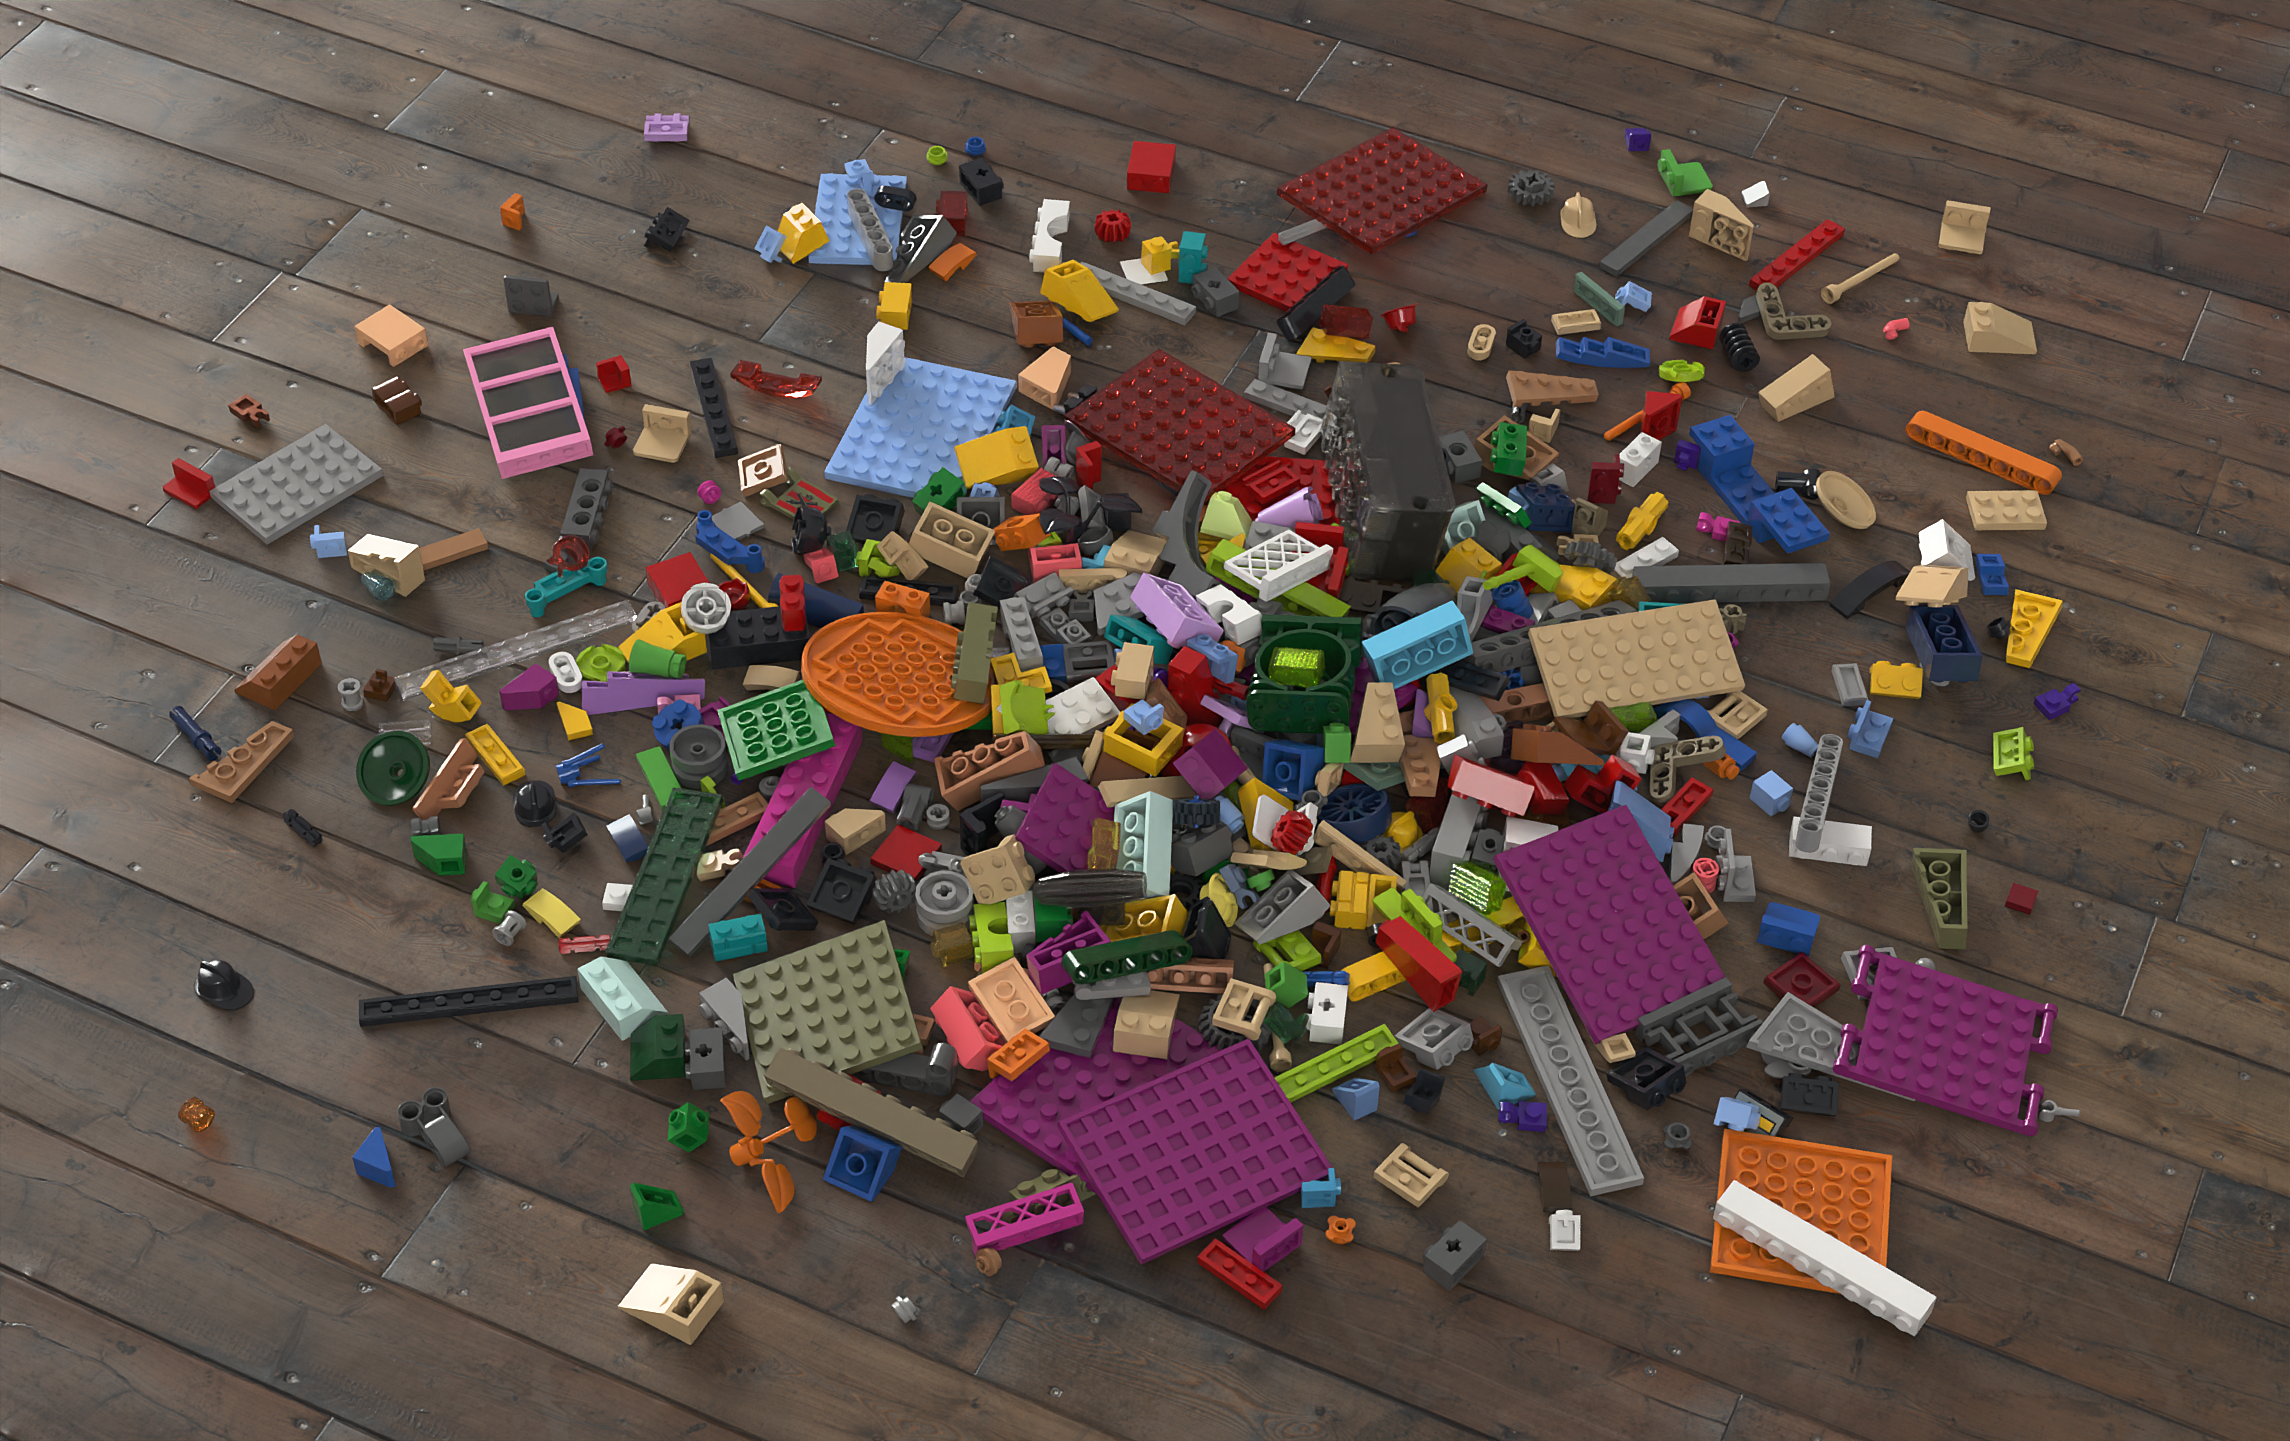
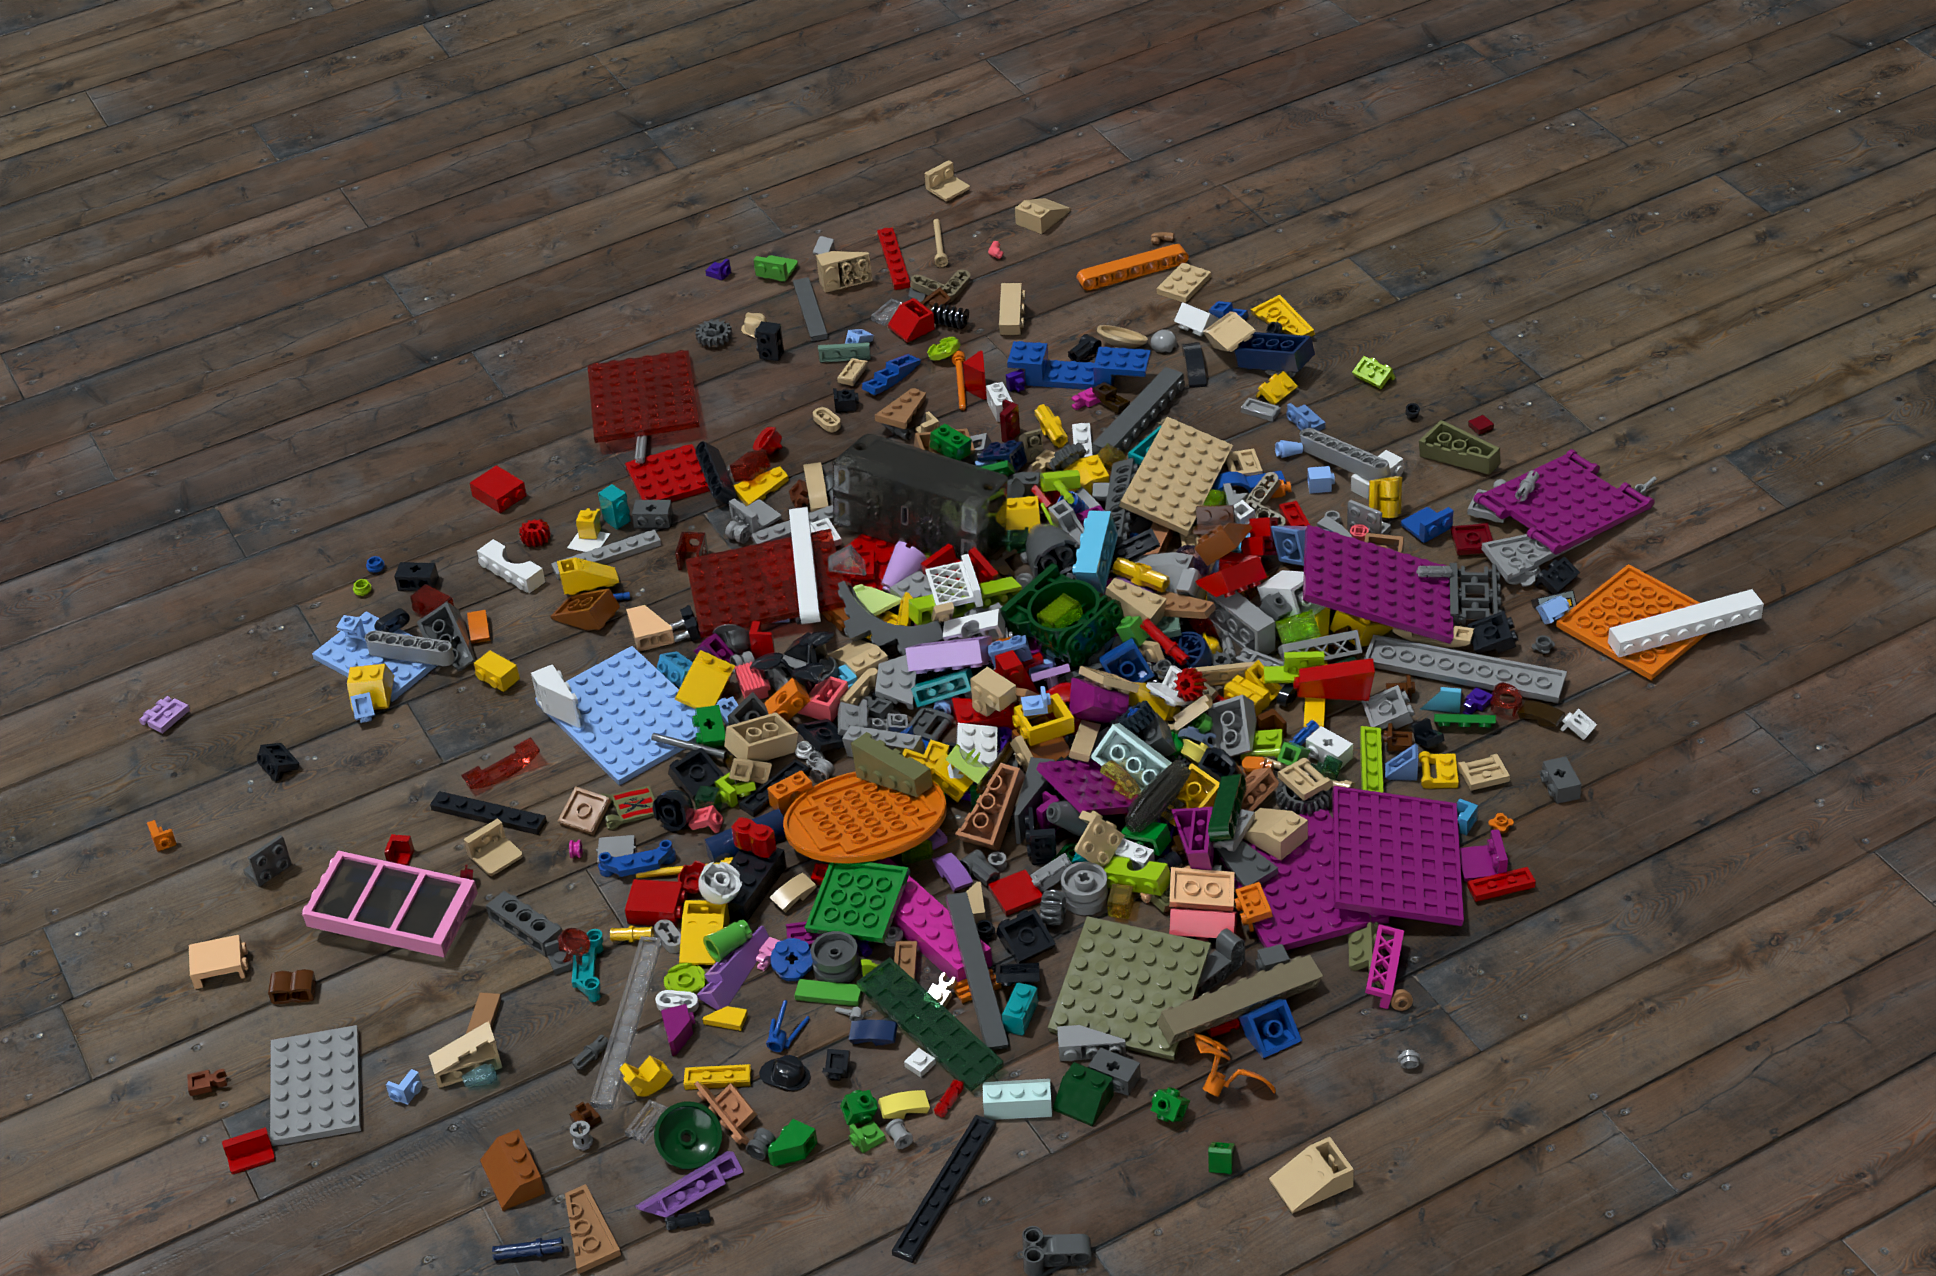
camera: 50 degrees left, 5 degrees down
(345, 808) = (692, 1186): none -> medium lavender wedge
(629, 591) = (631, 933): none -> yellow pin
(904, 493) = (688, 745): none -> dark grey bar
(1185, 346) = (685, 546): none -> clear red piece
(1211, 435) = (804, 566): none -> white beam
(1221, 574) = (943, 612): none -> tan plate
(1234, 758) = (1108, 680): none -> tan plate
(1246, 367) = (738, 532): none -> light grey wheel
(1249, 962) = (1251, 763): none -> orange arm
(1250, 466) = (847, 561): none -> clear slope
(1337, 788) = (1171, 648): none -> red pin
(1385, 1139) = (1445, 770): none -> yellow plate
(1481, 1116) = (1464, 720): none -> green plate
(1545, 1127) = (1505, 688): none -> clear red piece
(1550, 232) = (769, 341): none -> black brick
(1687, 295) = (886, 312): none -> clear plate
(1688, 967) = (1434, 571): none -> light grey axle
(1755, 322) = (938, 296): none -> reddish brown plate
(1780, 864) = (1386, 496): none -> yellow plate
(1881, 543) = (1163, 341): none -> light grey hair
(1922, 986) = (1527, 485): none -> light grey pin
(2055, 703) = (1348, 339): dark purple plate -> none

